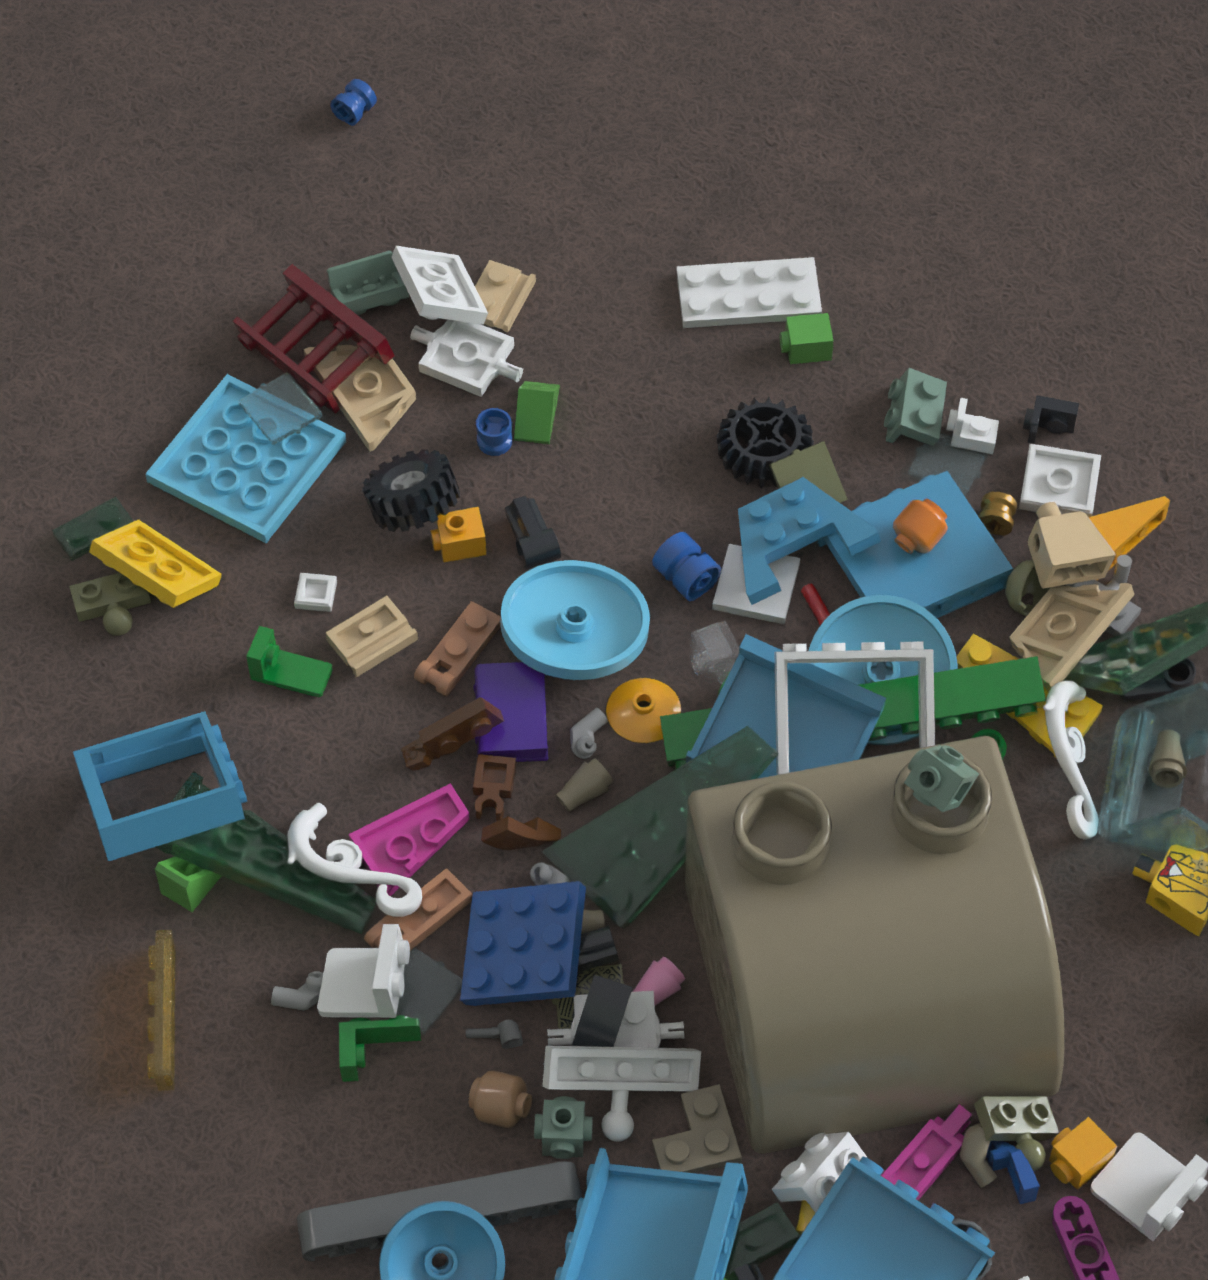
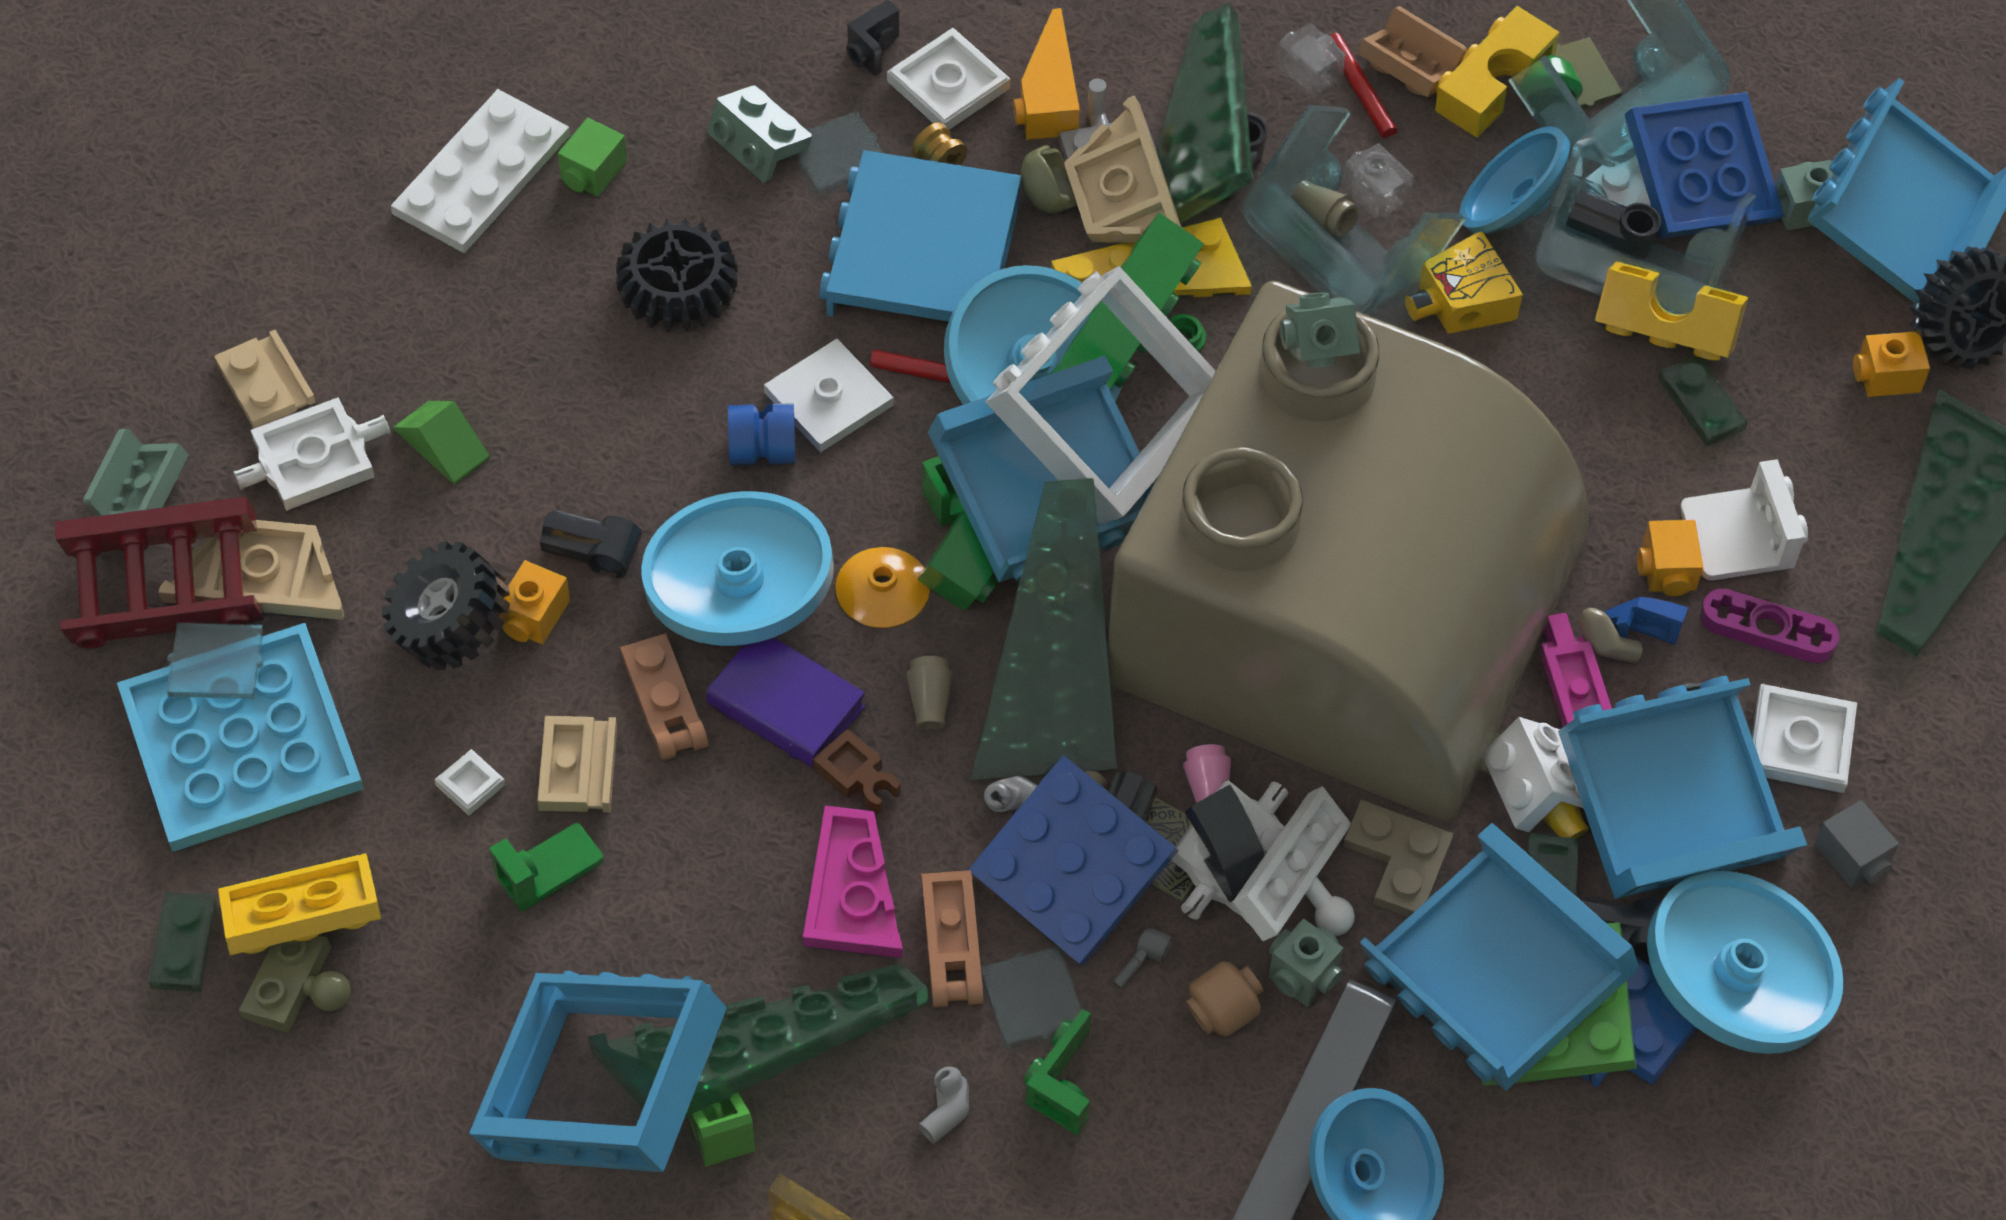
camera: 55 degrees left, 0 degrees up
(348, 868) = (769, 985): white plant -> none
(365, 979) = (996, 1025): white bracket -> none
(439, 285) = (212, 414): white plate -> none
(451, 732) = (771, 766): reddish brown hinge -> none
(494, 431) = (436, 490): blue wheel -> none
(513, 835) = (936, 784): reddish brown slope -> none
(583, 733) = (867, 657): light grey arm -> none
(713, 652) = (884, 478): clear brick -> none
(789, 522) = (799, 310): dark azure wing -> none
(812, 464) = (761, 269): olive piece -> none
(920, 526) = (917, 208): orange head -> none
(972, 431) = (825, 106): white bracket -> none
(1018, 1120) = (1602, 580): olive plate -> none
(1067, 548) = (1050, 112): tan torso -> none
(1069, 751) = (1230, 252): white plant -> none

